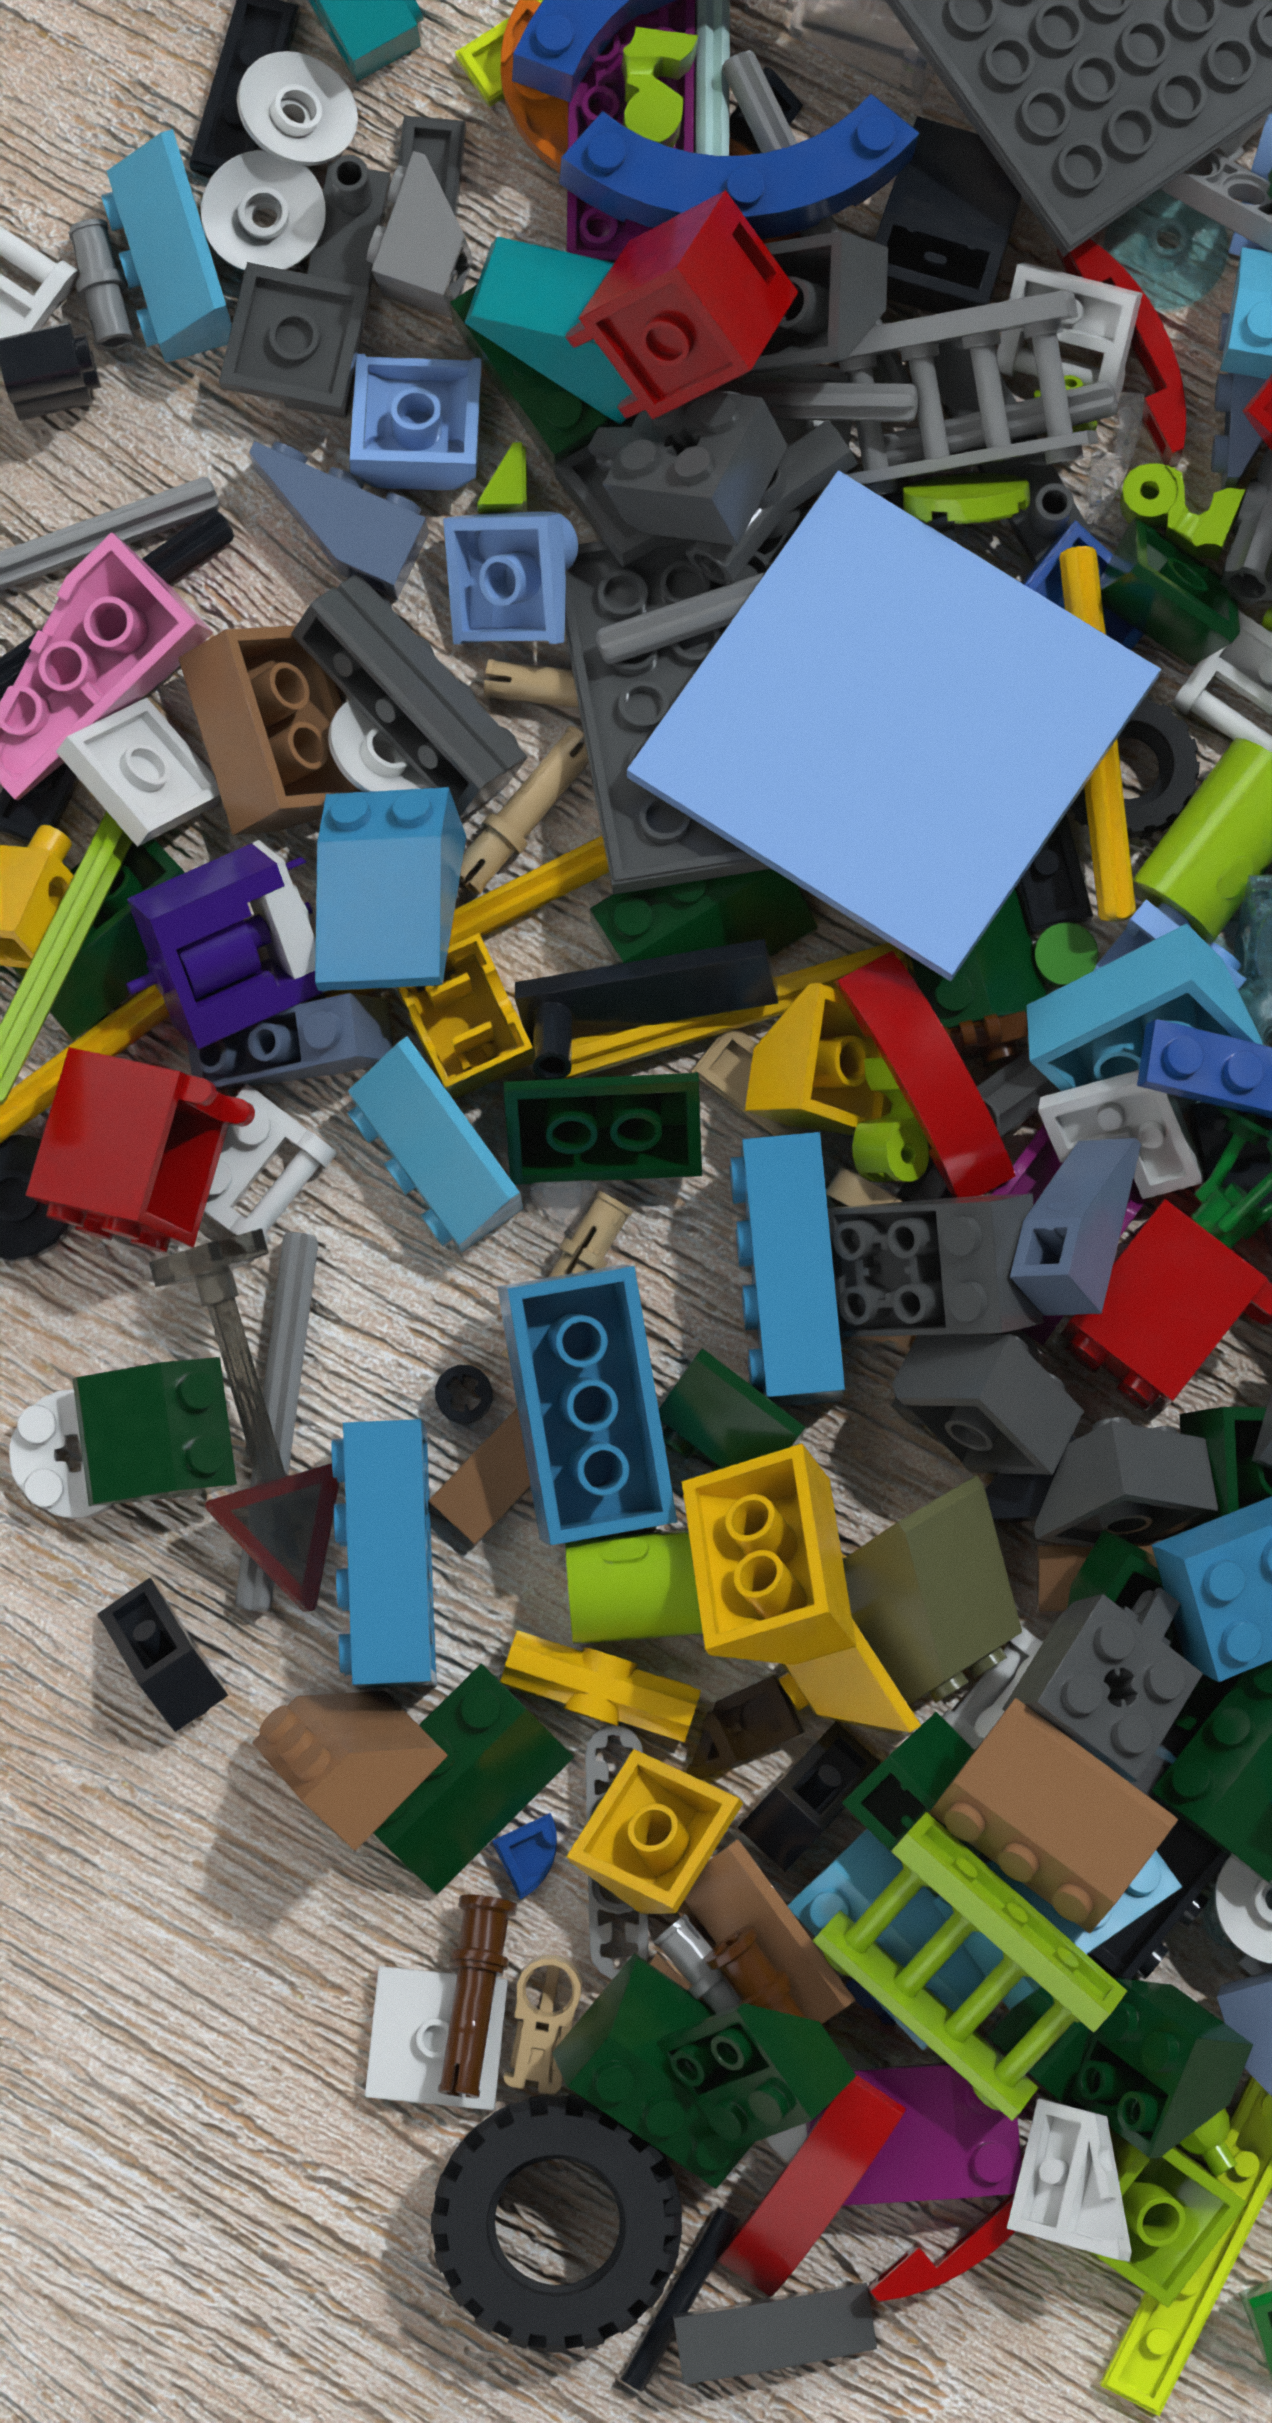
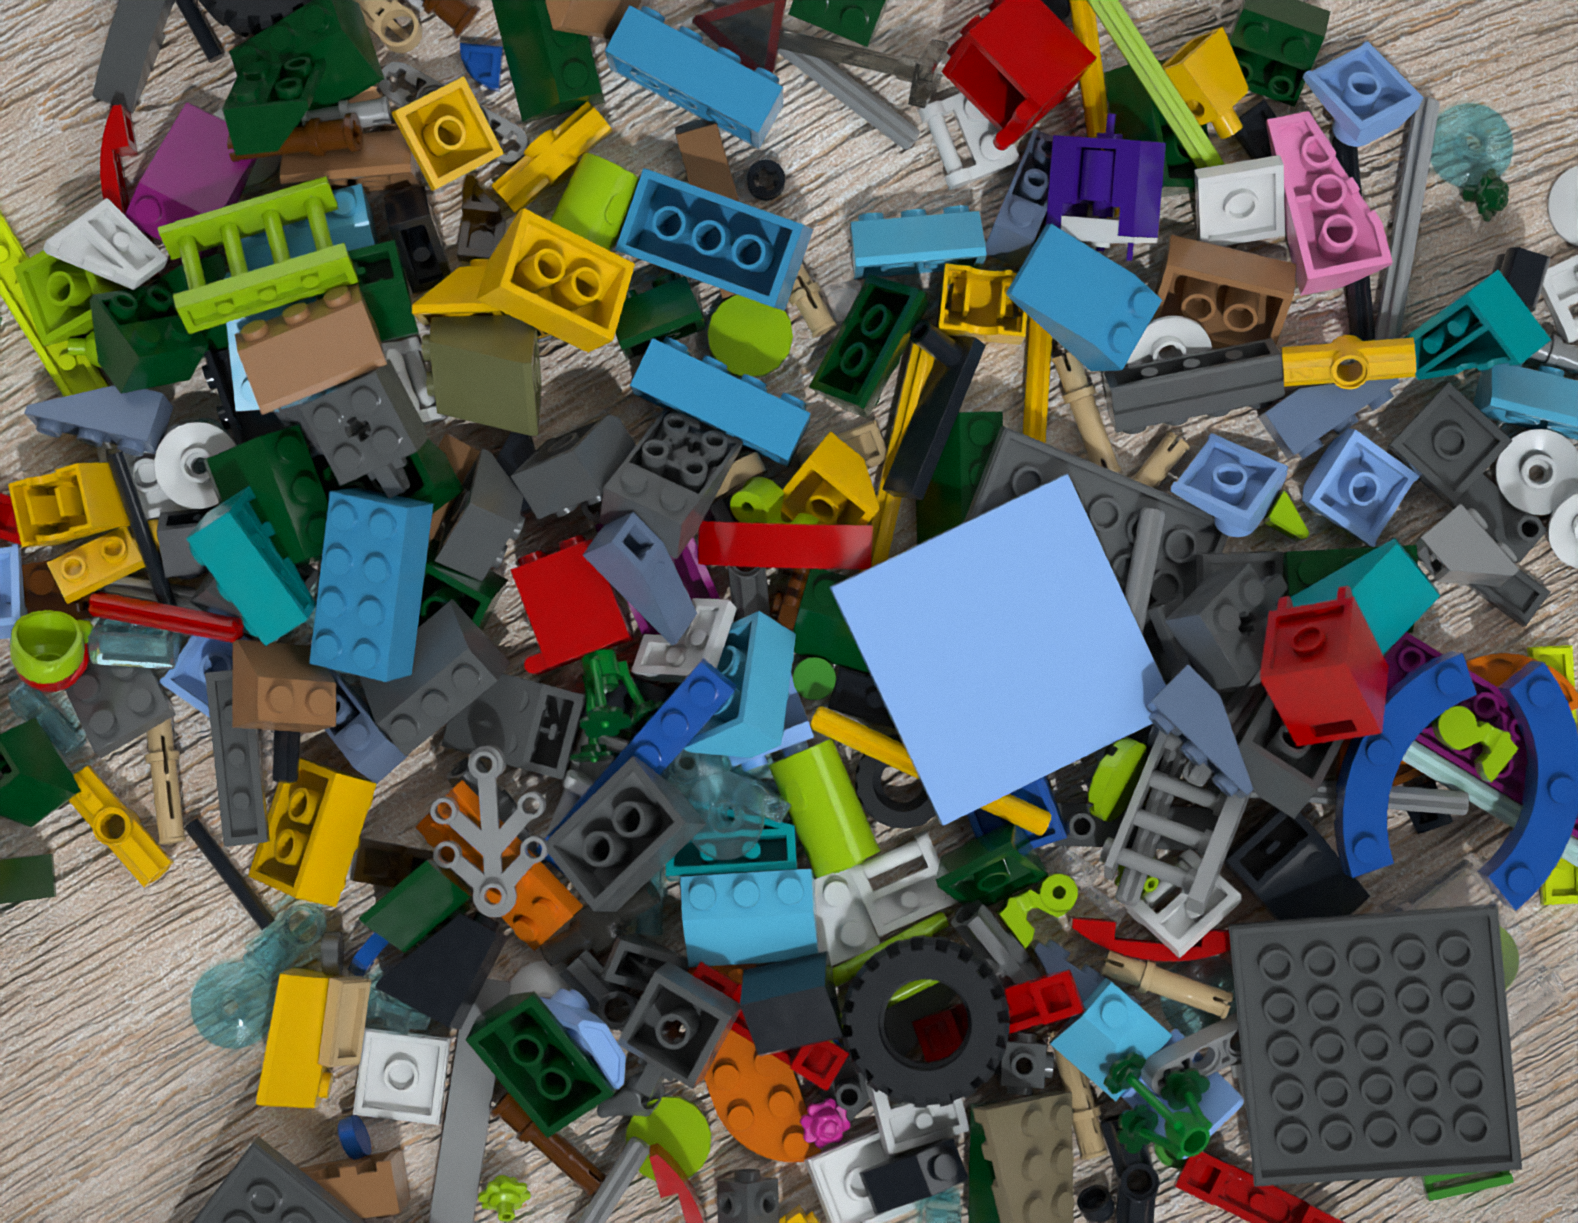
camera: 120 degrees right, 5 degrees up
(141, 382) = (1477, 331): none -> teal wedge
(267, 516) = (1374, 362): none -> yellow piece
(684, 1293) = (749, 336): none -> lime tile
(812, 2186) = (196, 105): red slope -> none
(837, 429) = (1200, 722): none -> sand blue slope
(1187, 320) = (1166, 983): none -> tan pin

